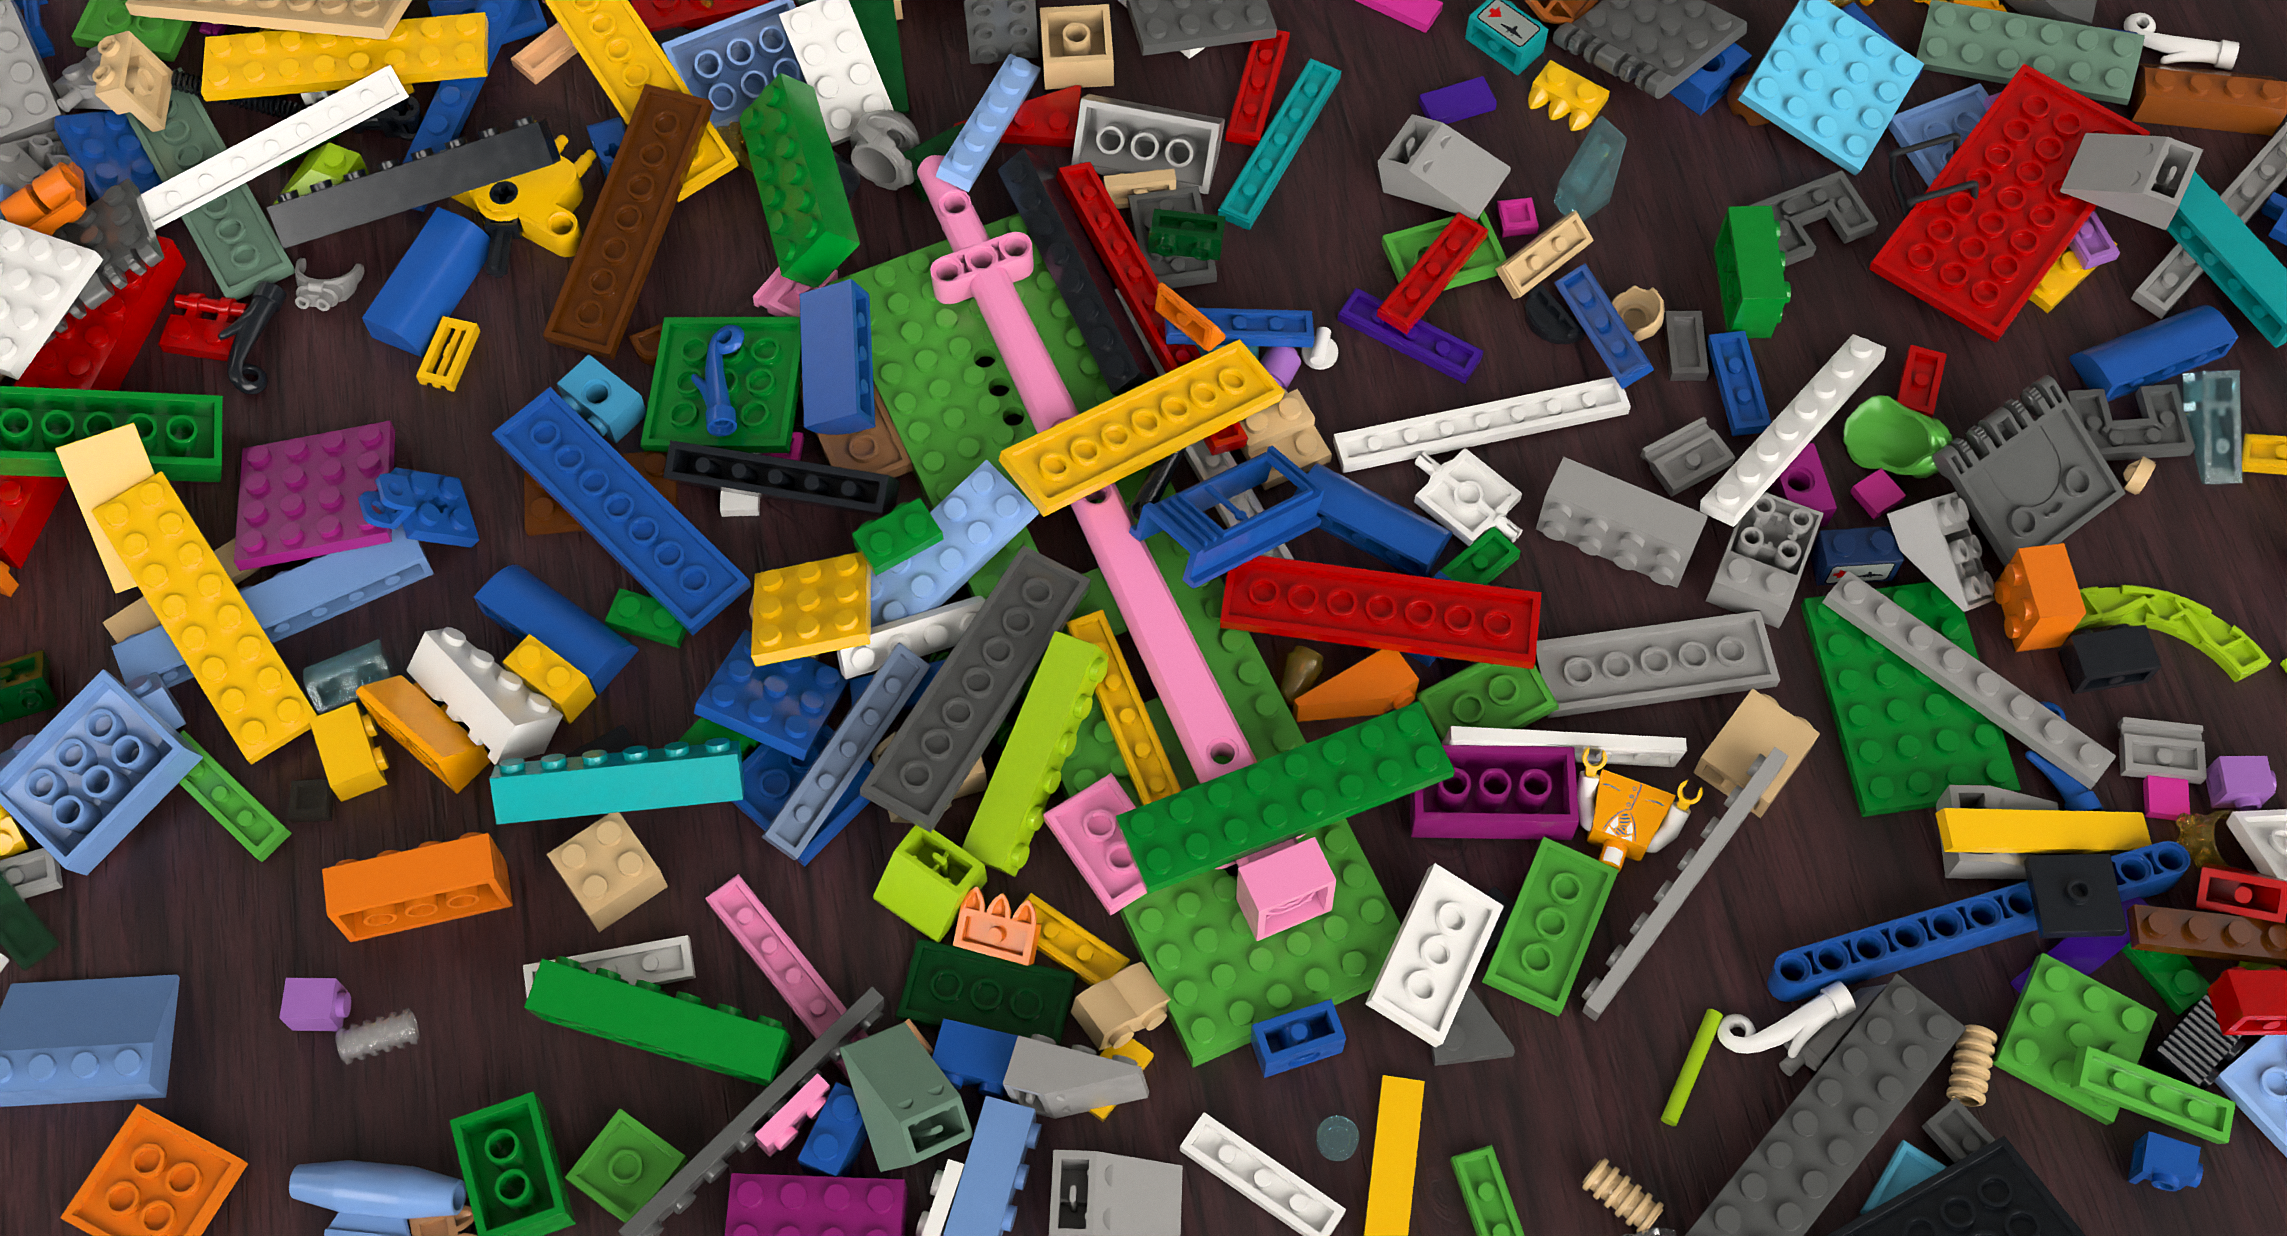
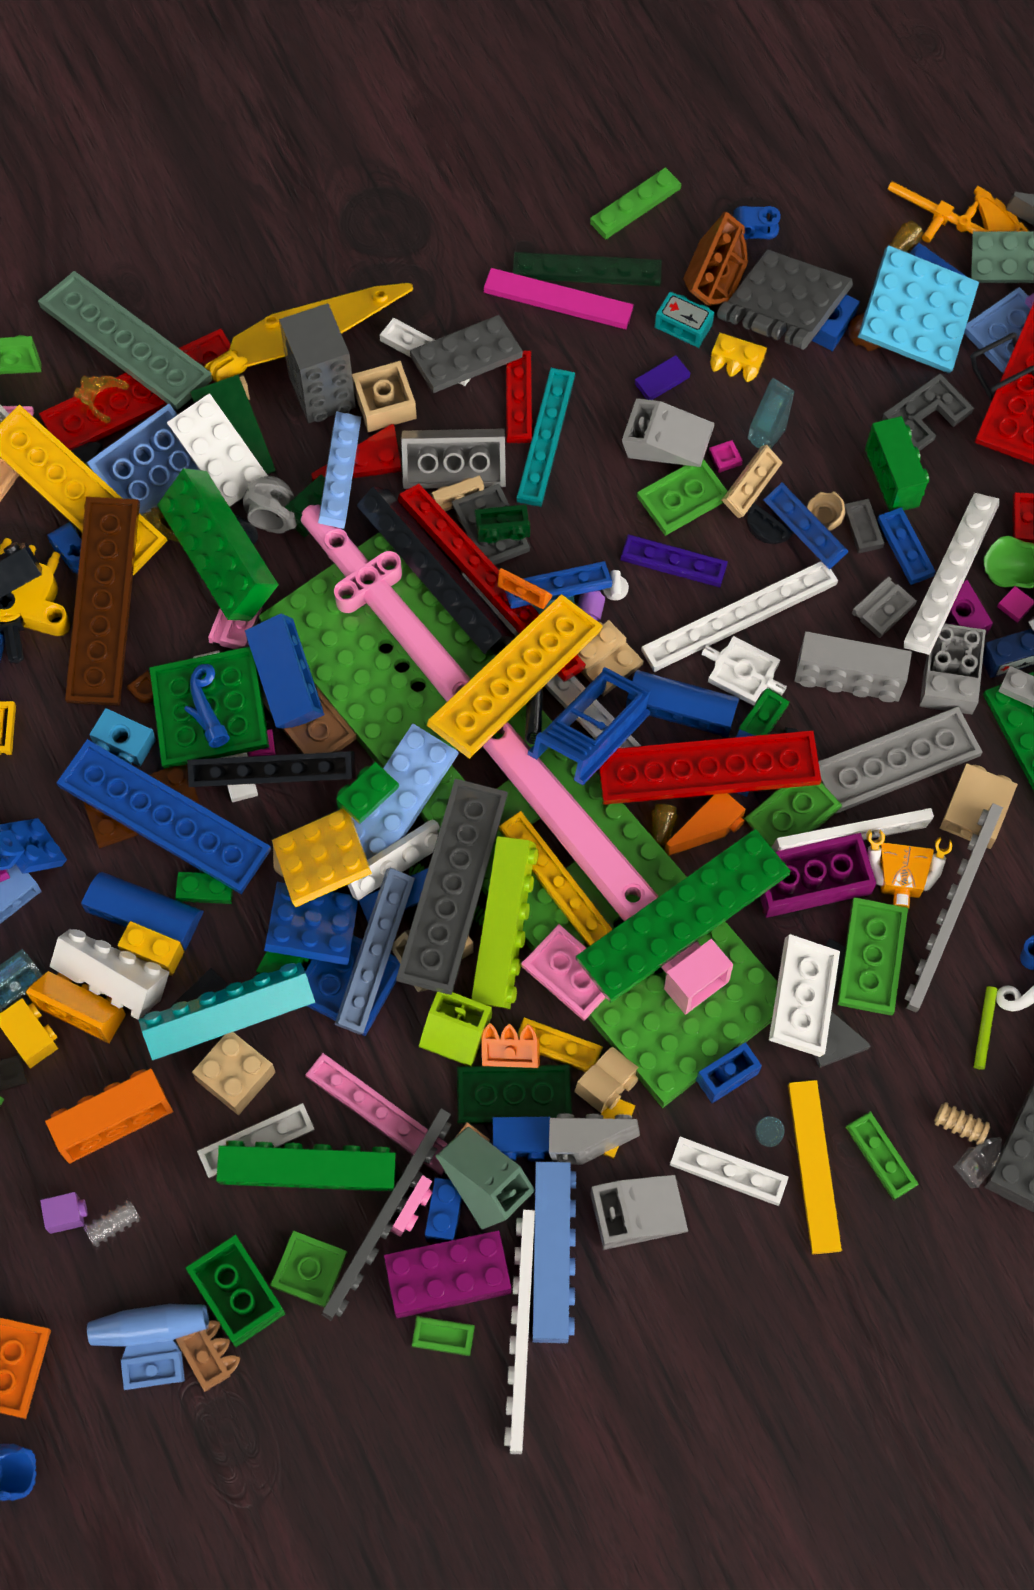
camera: 15 degrees left, 5 degrees up
(1432, 273) = (679, 513): red tile -> none

